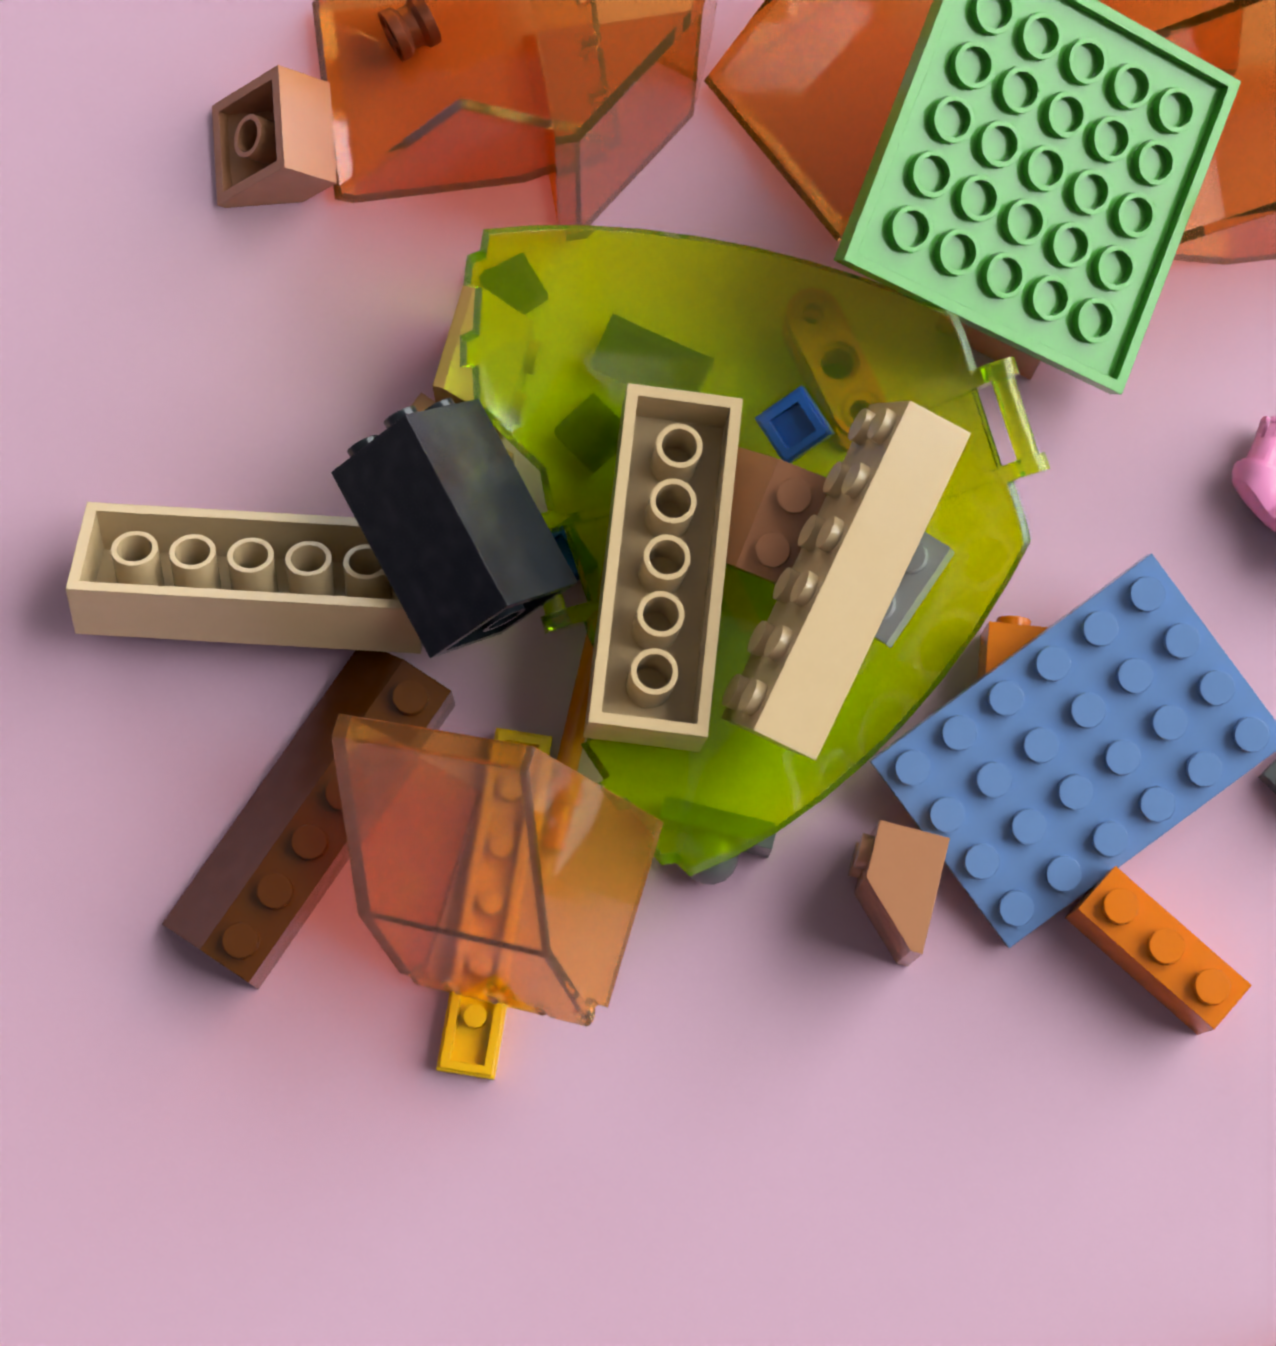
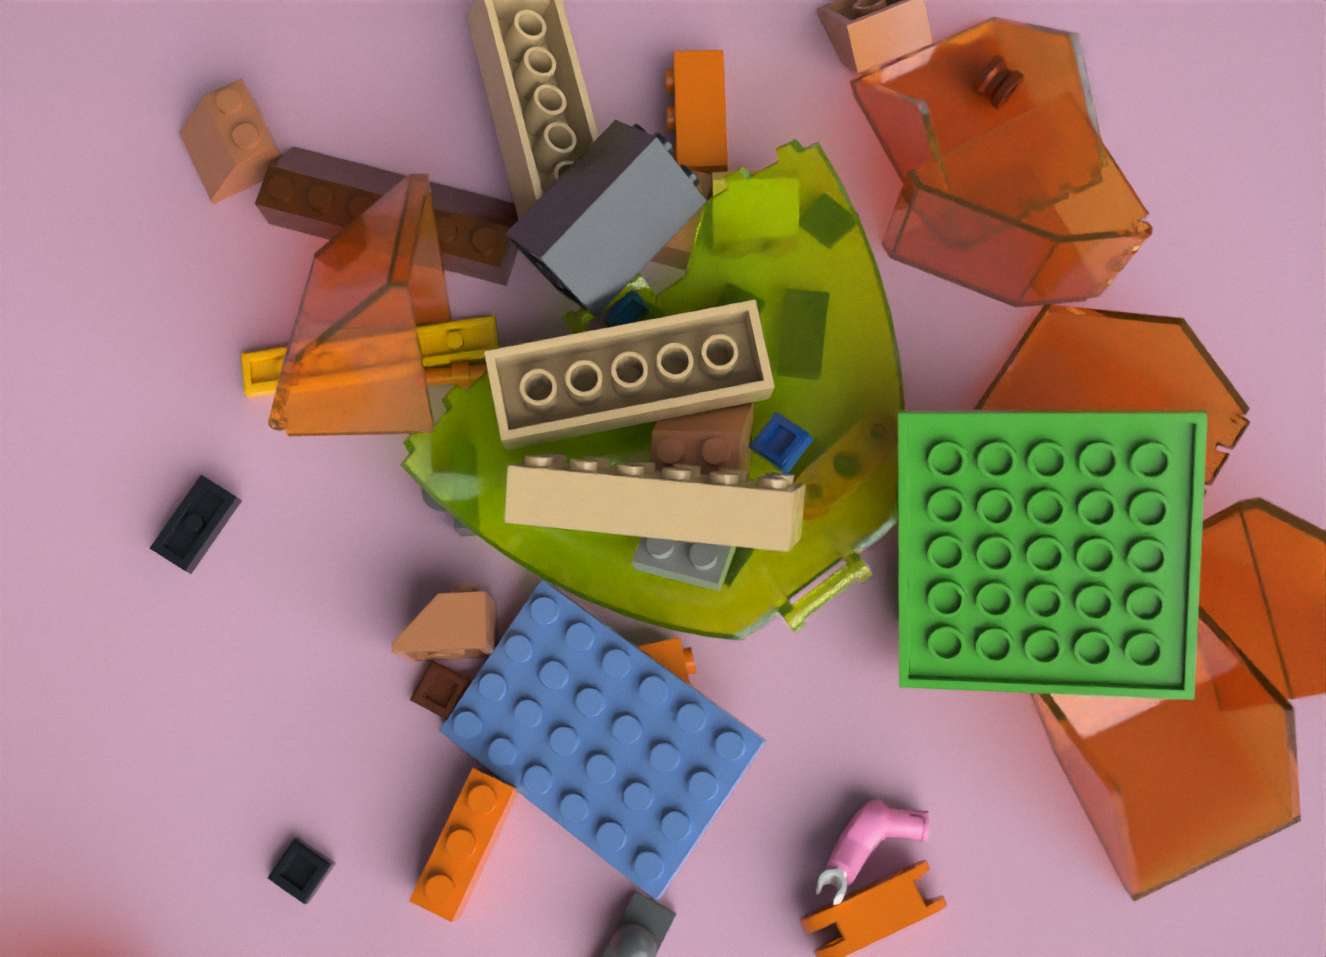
camera: 80 degrees right, 0 degrees up
(130, 1004) = (229, 141): none -> nougat slope
(315, 388) = (698, 110): none -> orange brick
(652, 1186) = (195, 524): none -> black plate
(959, 934) = (440, 690): none -> copper tile
(1129, 1167) = (301, 870): none -> black tile

